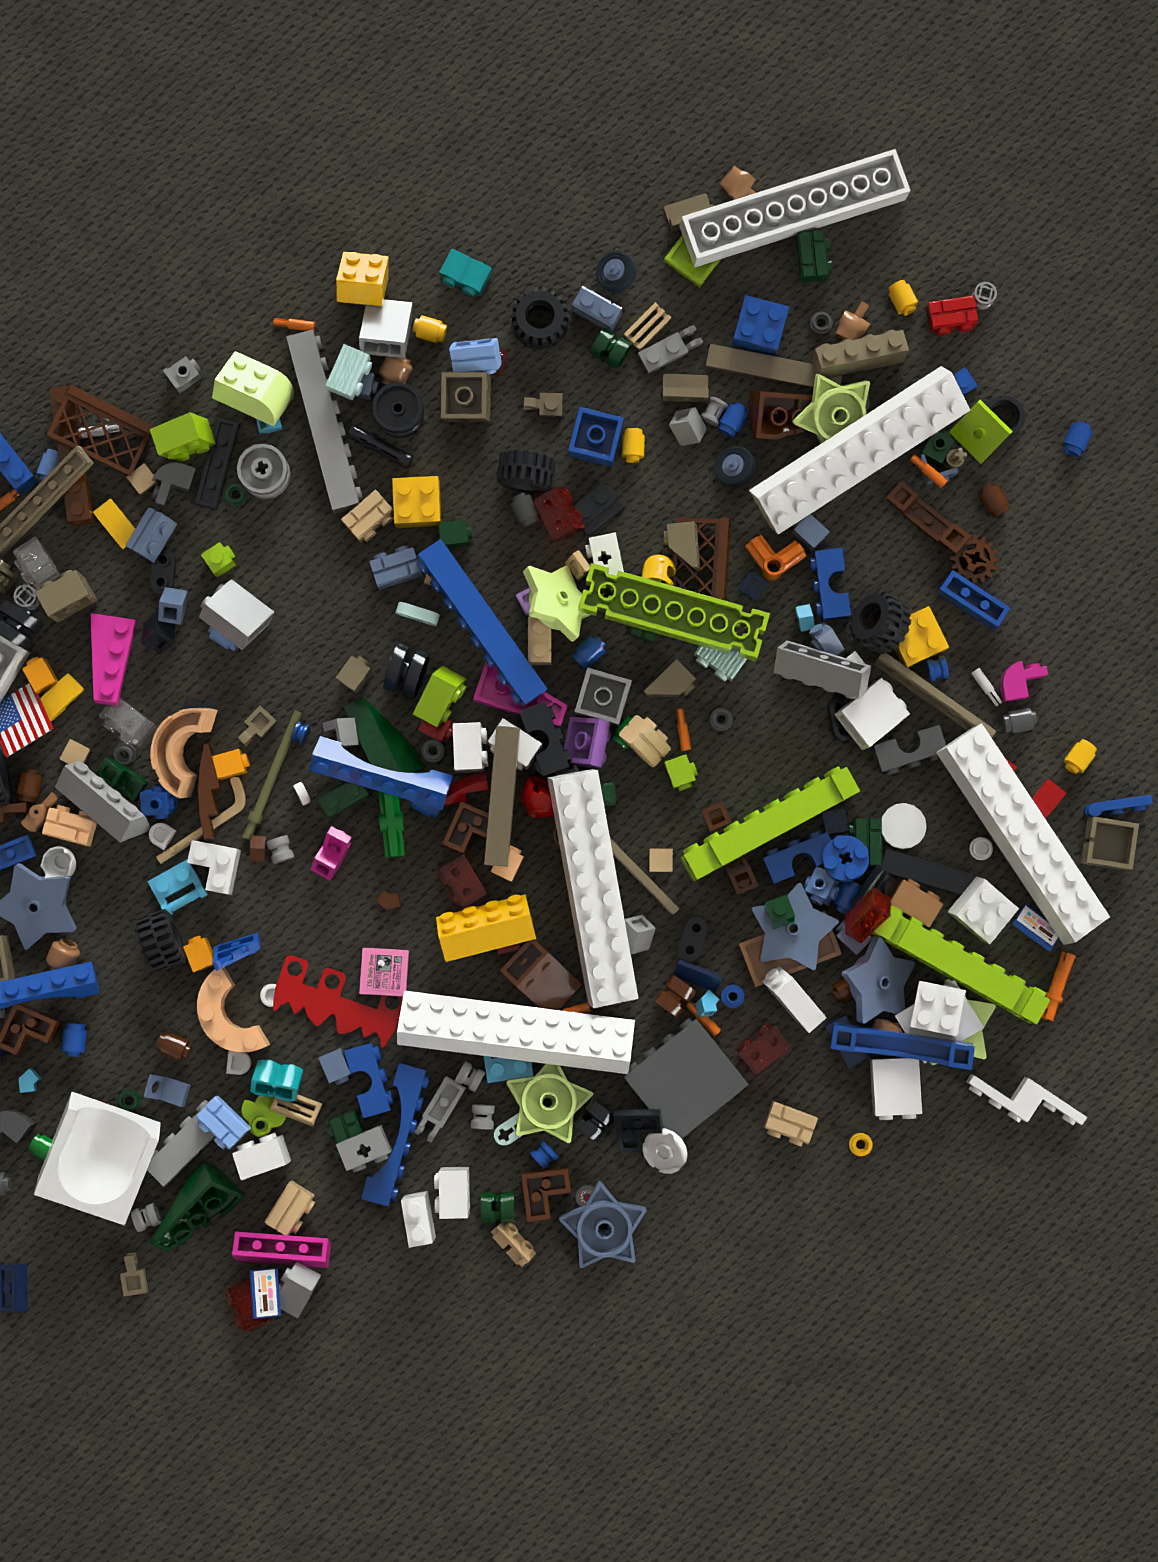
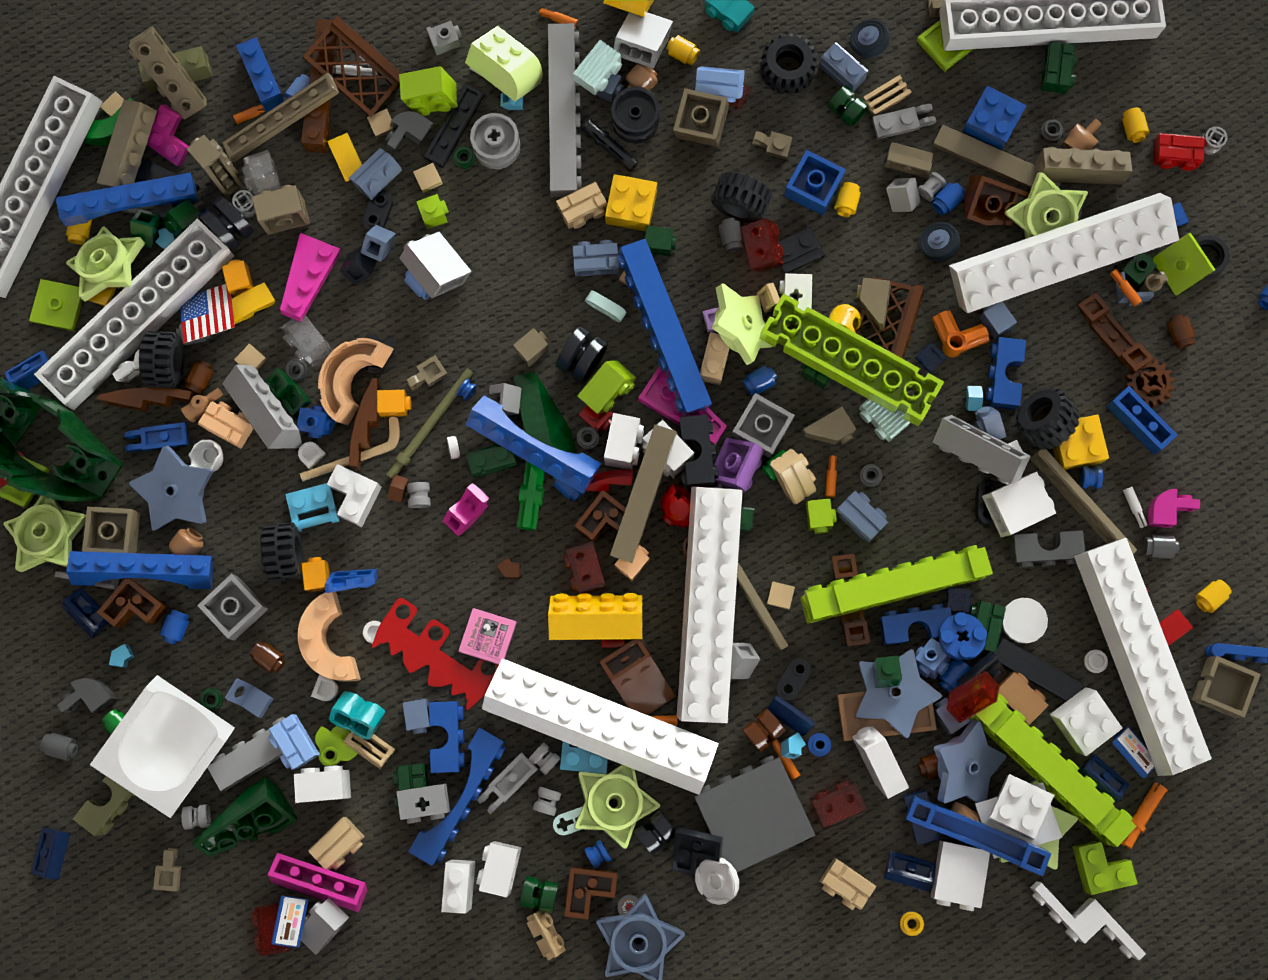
camera: 15 degrees right, 5 degrees down
(51, 1242) = (97, 817): none -> olive arch
(126, 1006) = (232, 607): none -> light grey brick
(204, 524) = (428, 177): none -> tan tile
(721, 763) = (862, 516): none -> sand blue brick
(847, 1095) = (910, 871): none -> dark blue slope
(1013, 960) = (1105, 778): none -> dark blue slope
(1027, 1053) = (1097, 874): none -> lime brick

